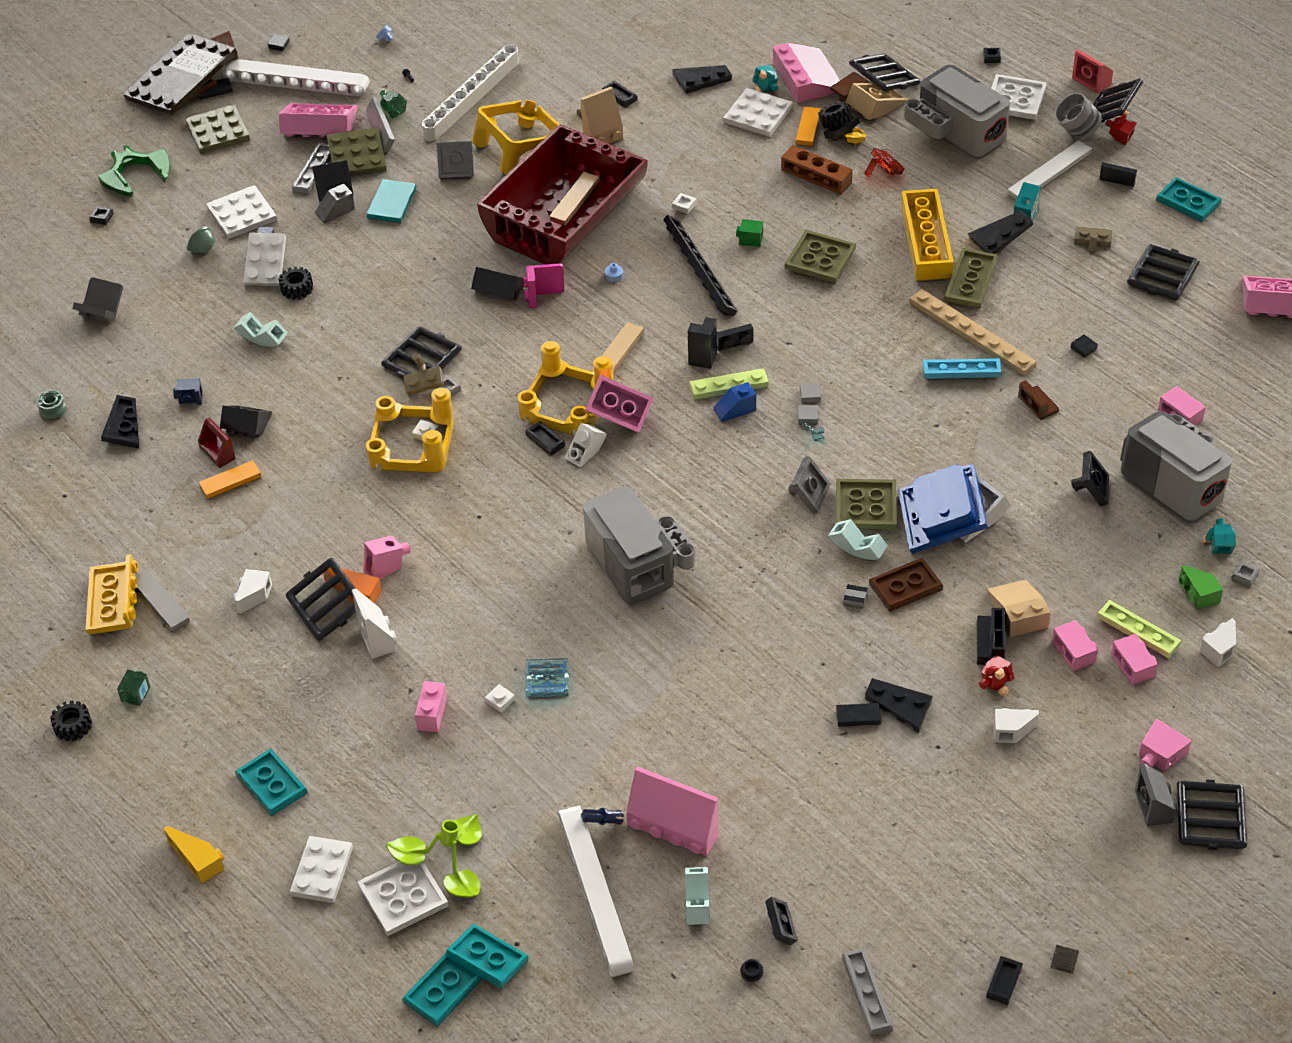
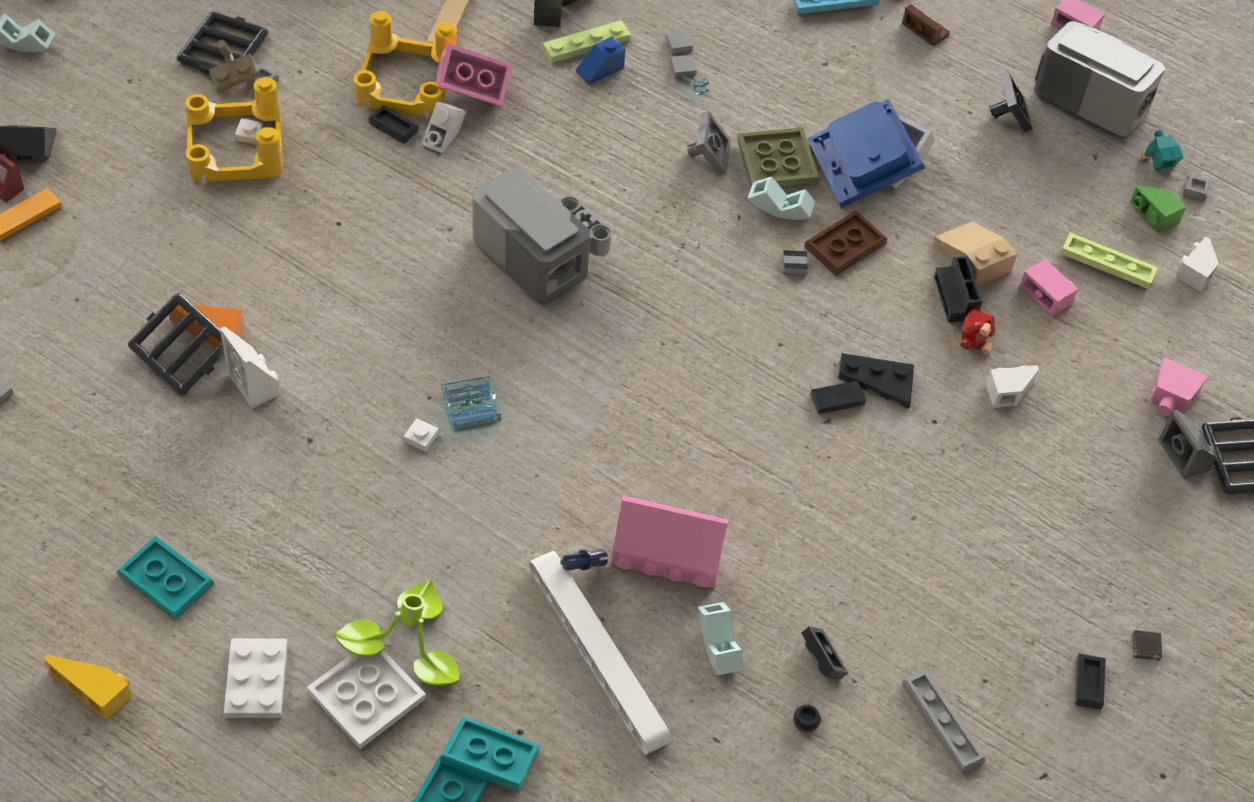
camera: 20 degrees left, 5 degrees up
(253, 590) = (85, 344): white slope -> none
(383, 556) = (239, 283): bright pink torso -> none
(431, 706) = (342, 457): bright pink brick -> none
(1134, 659) = (1115, 294): bright pink brick -> none

